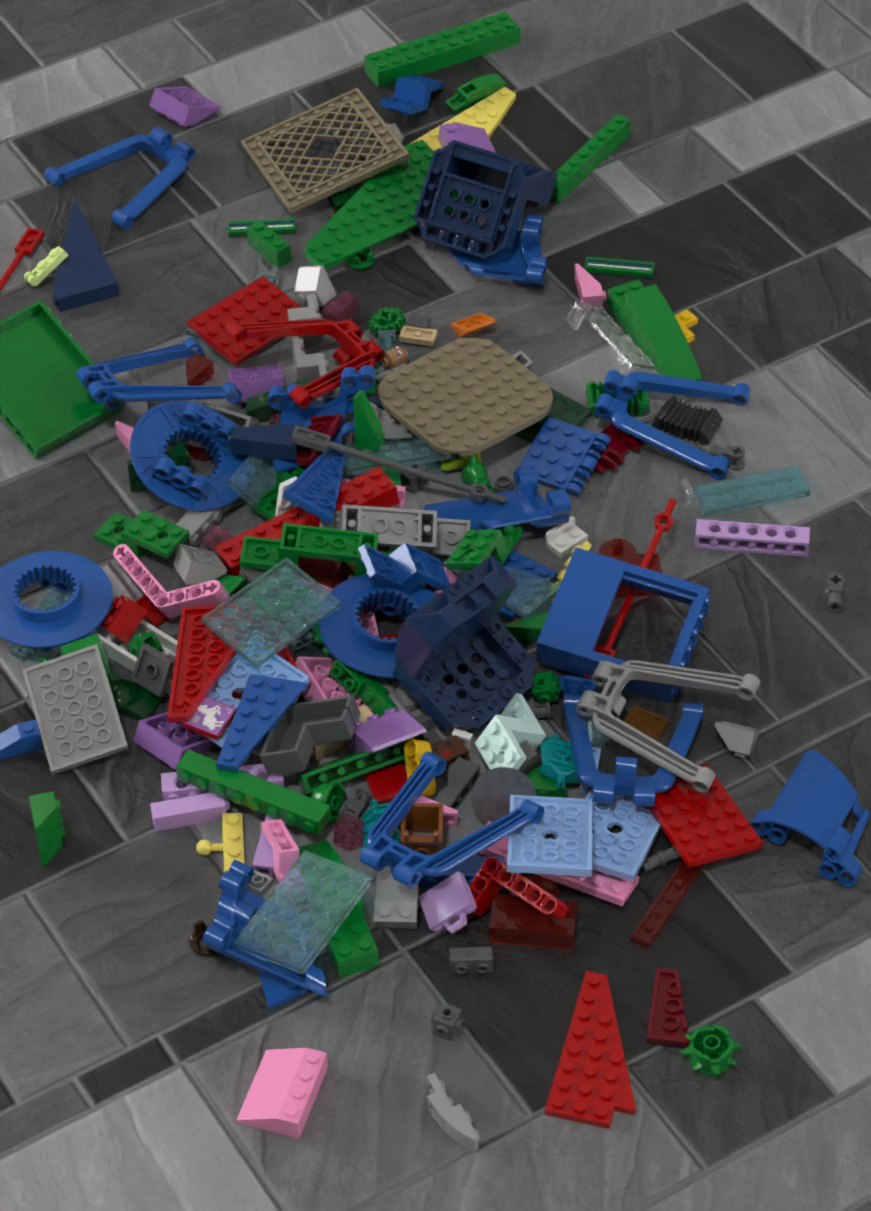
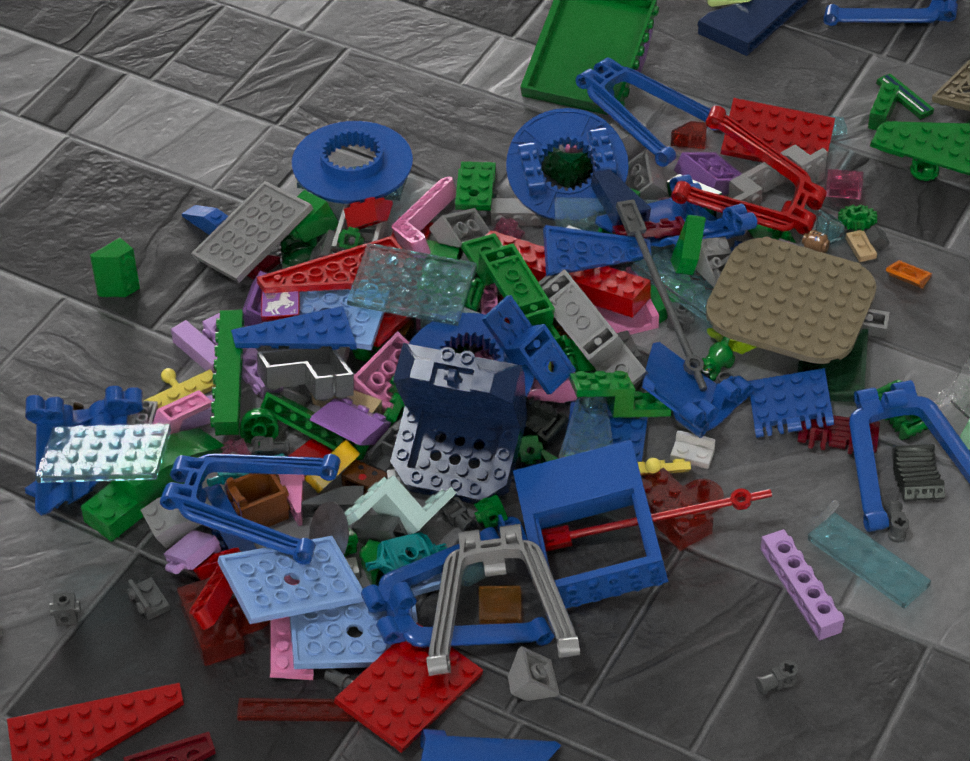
camera: 60 degrees right, 0 degrees up
(314, 281) = (846, 153): light grey slope -> none

